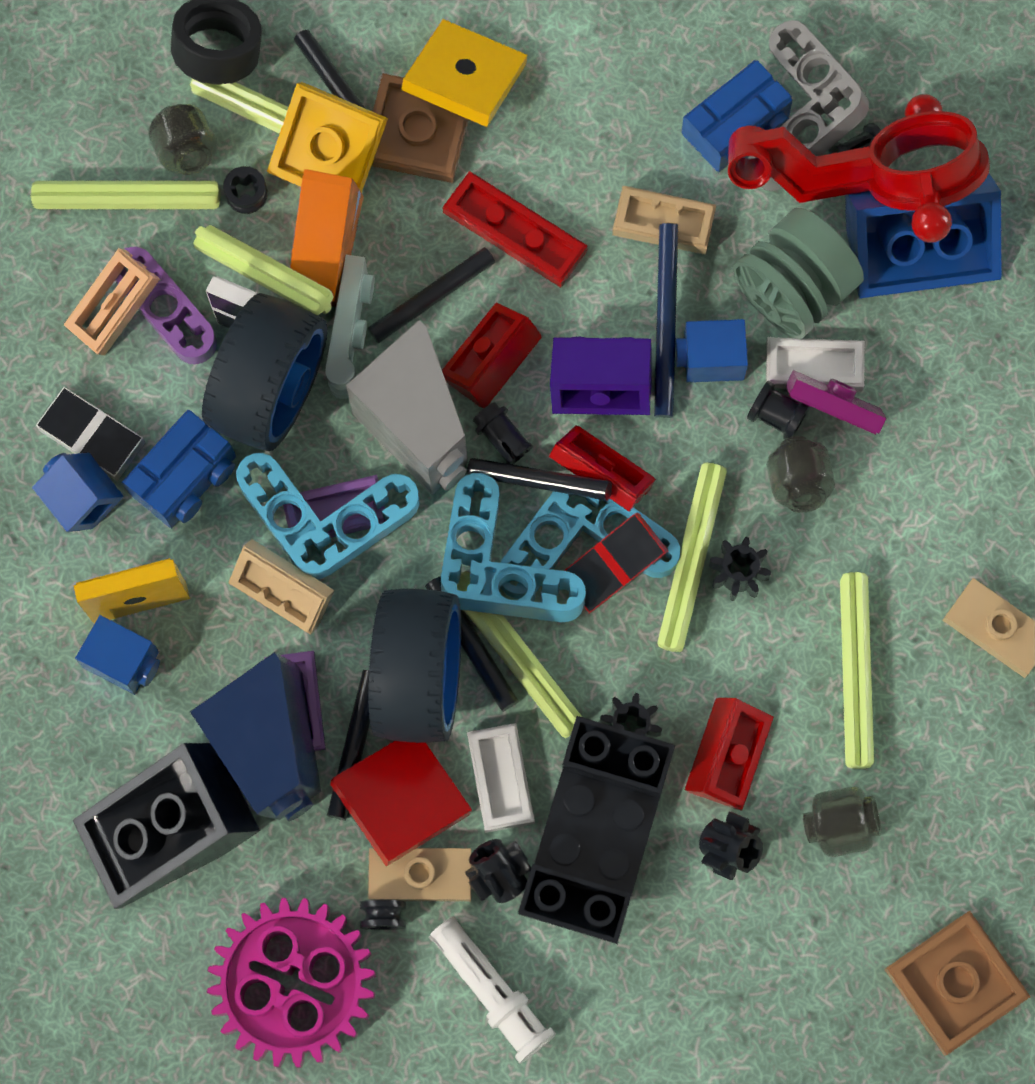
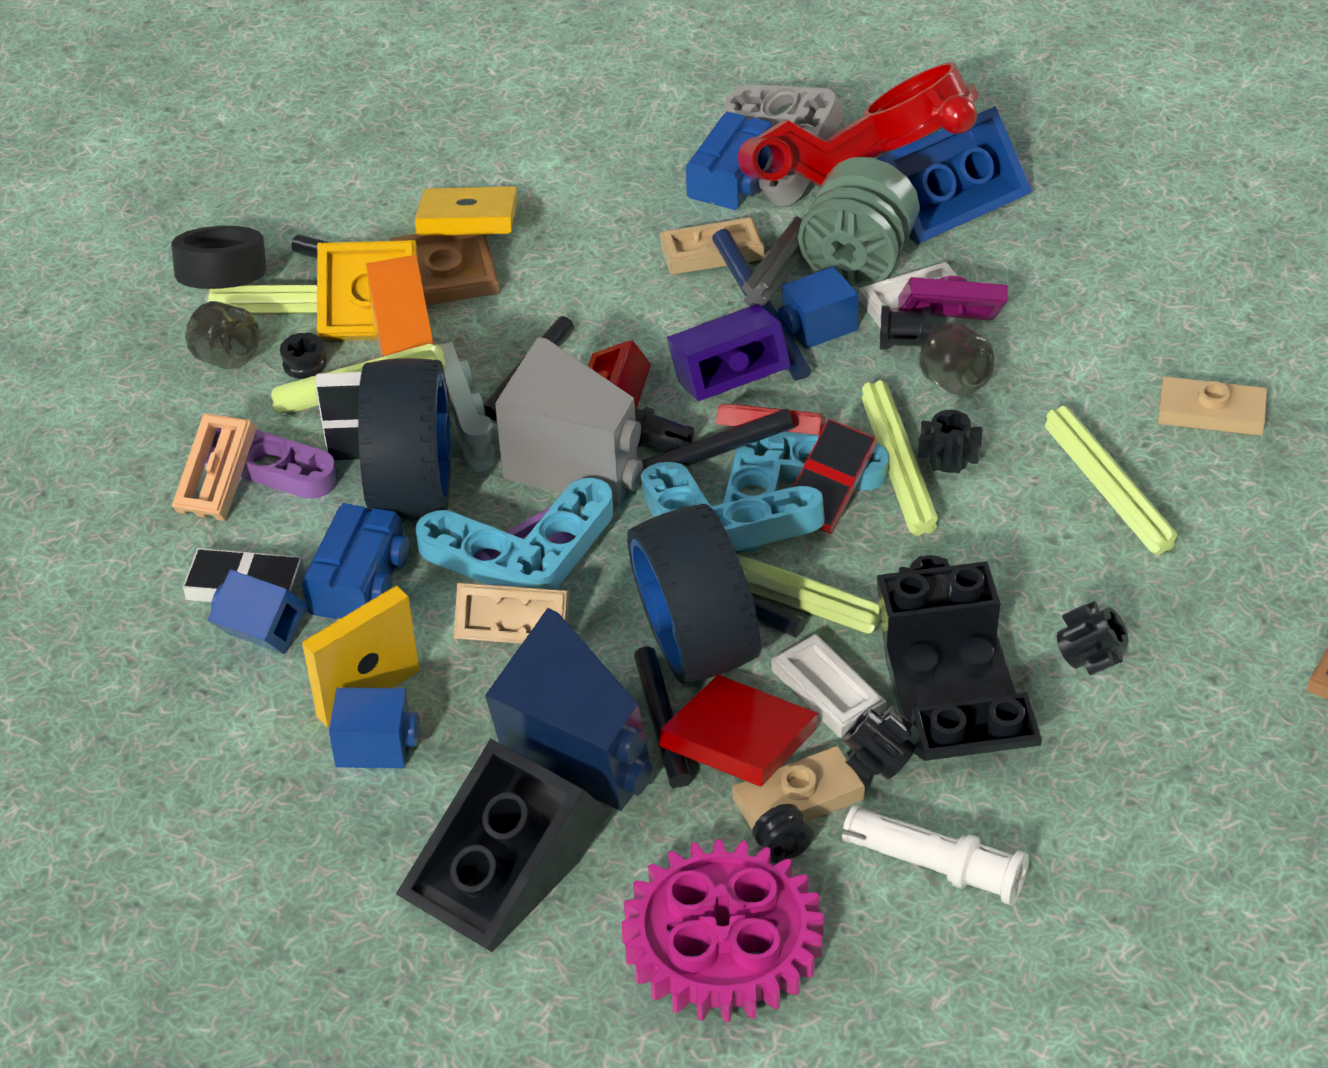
camera: 25 degrees left, 30 degrees down
(125, 194) = (184, 397): yellowish green axle -> none
(515, 229) = (578, 299): red tile -> none
(700, 286) = (774, 266): none -> dark grey axle
(729, 752) = (1033, 581): red slope -> none
(842, 821) = (1183, 581): clear smoke head -> none

